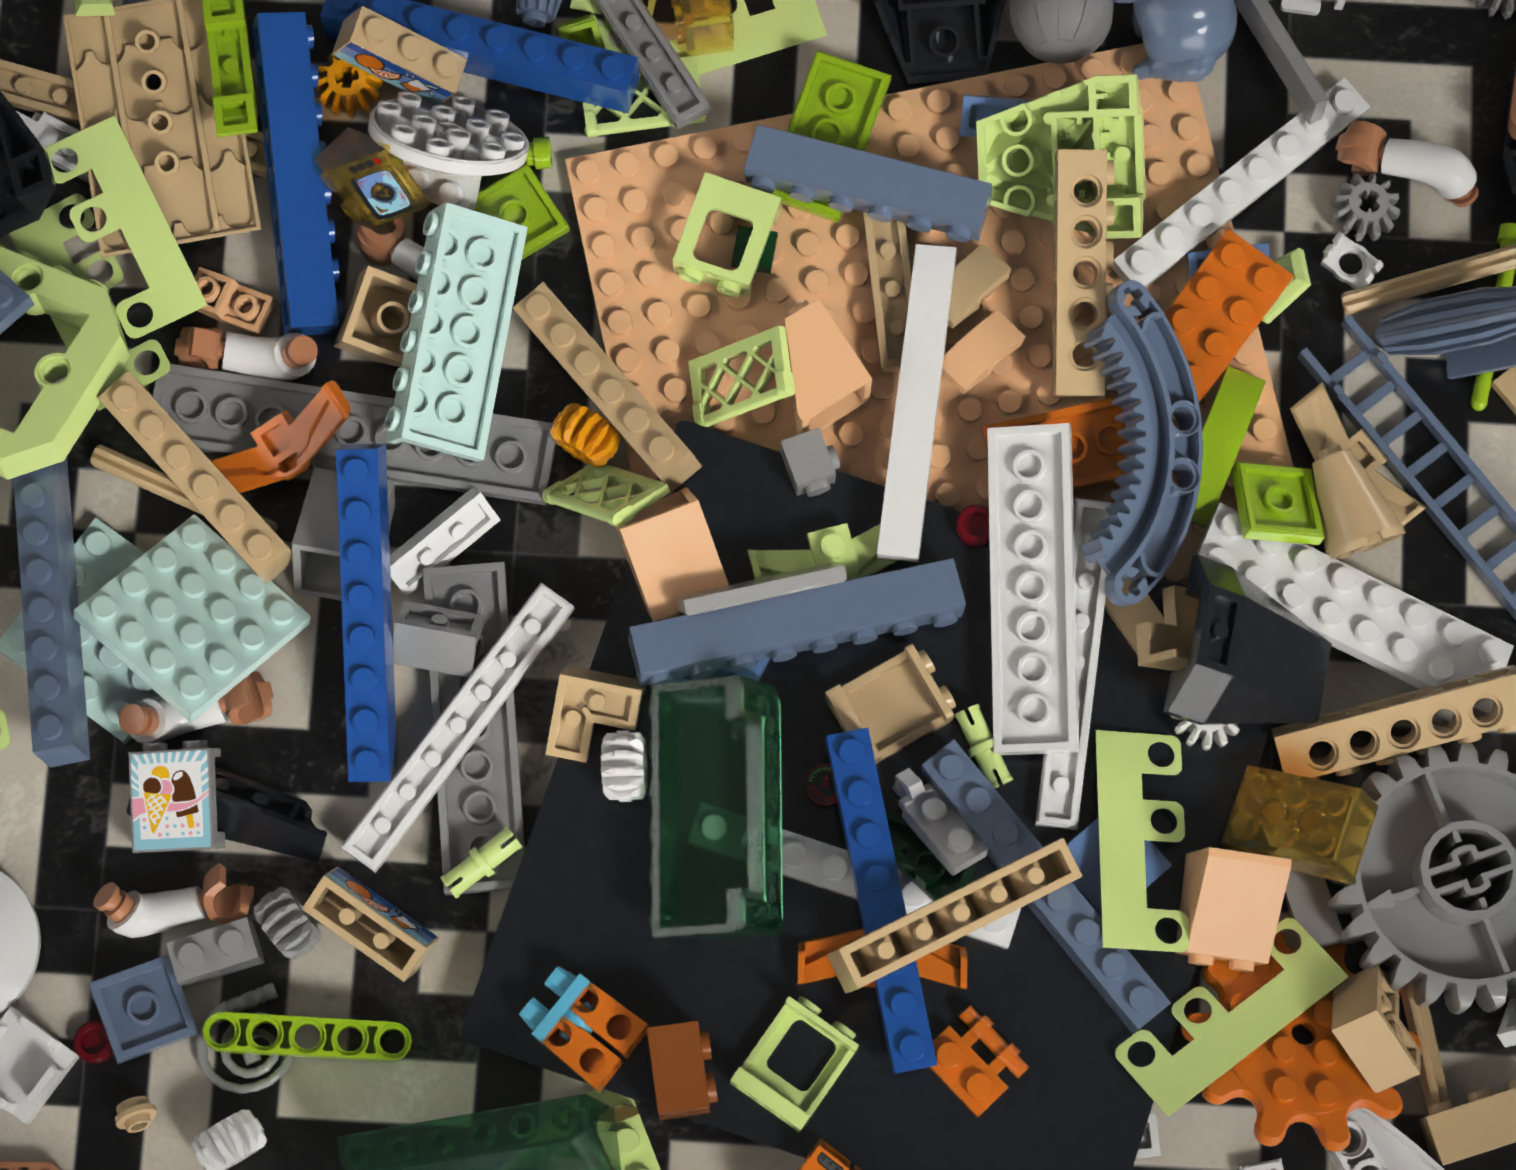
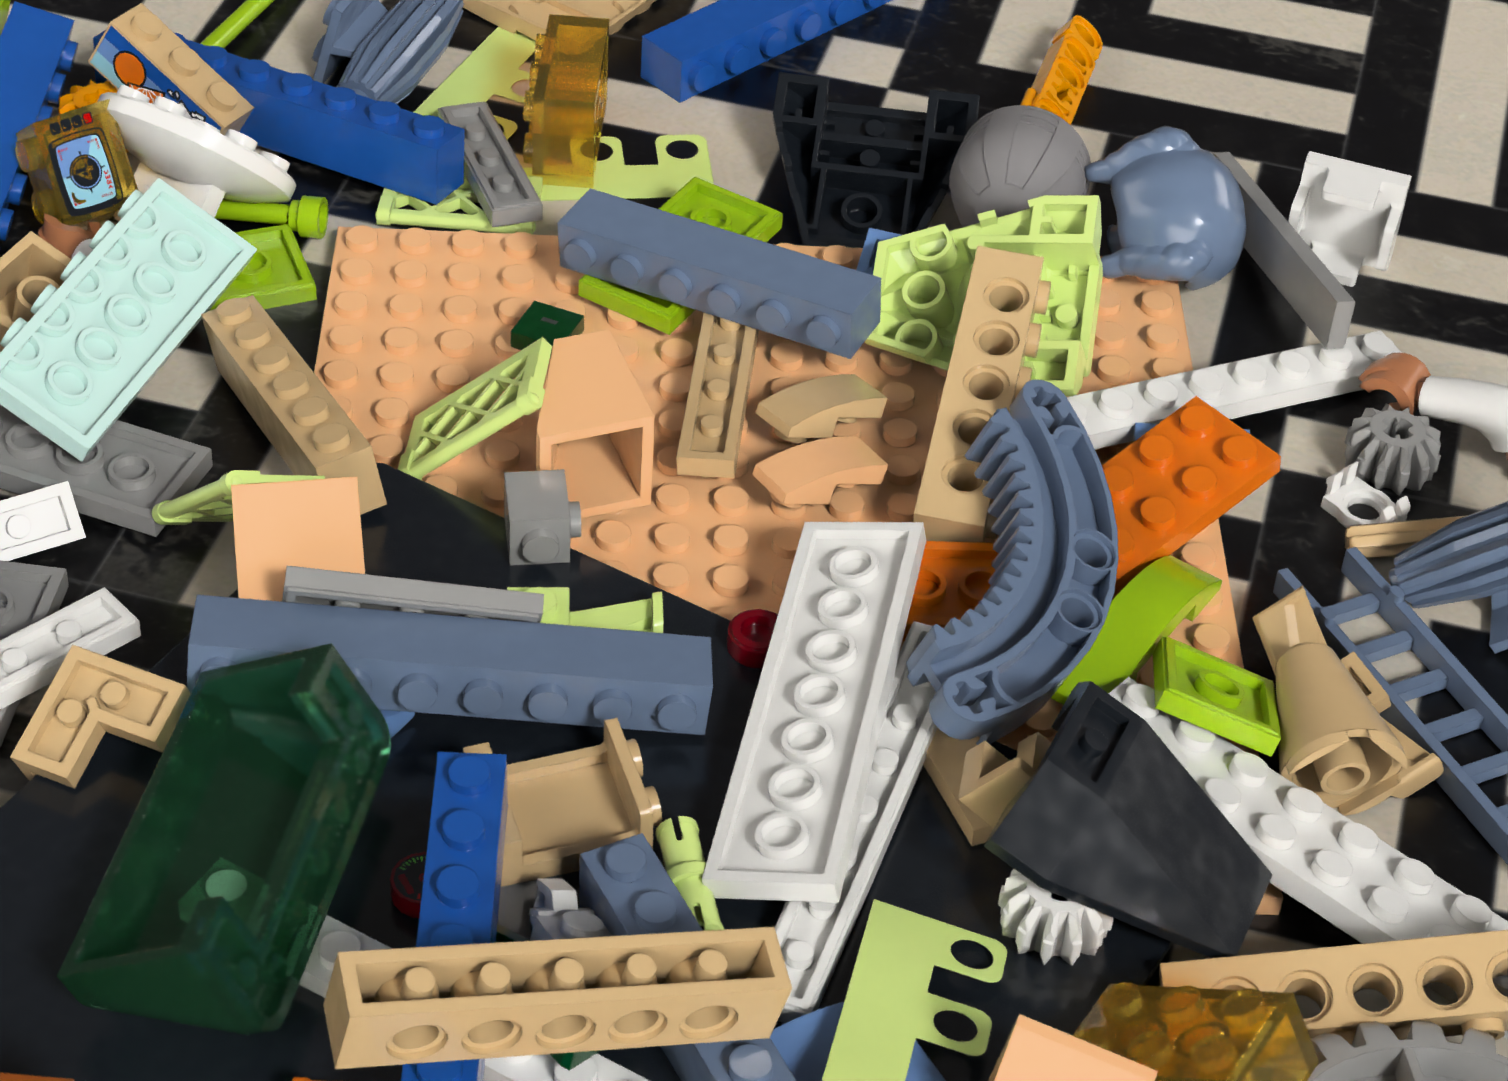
camera: 10 degrees right, 35 degrees down
(585, 435) = (238, 441): light orange gear -> none
(624, 766) = (114, 775): white gear -> none
(736, 200) = (524, 266): yellowish green window -> none
(916, 403) = (708, 490): white tile -> none
(1295, 264) = (1267, 503): yellowish green piece -> none

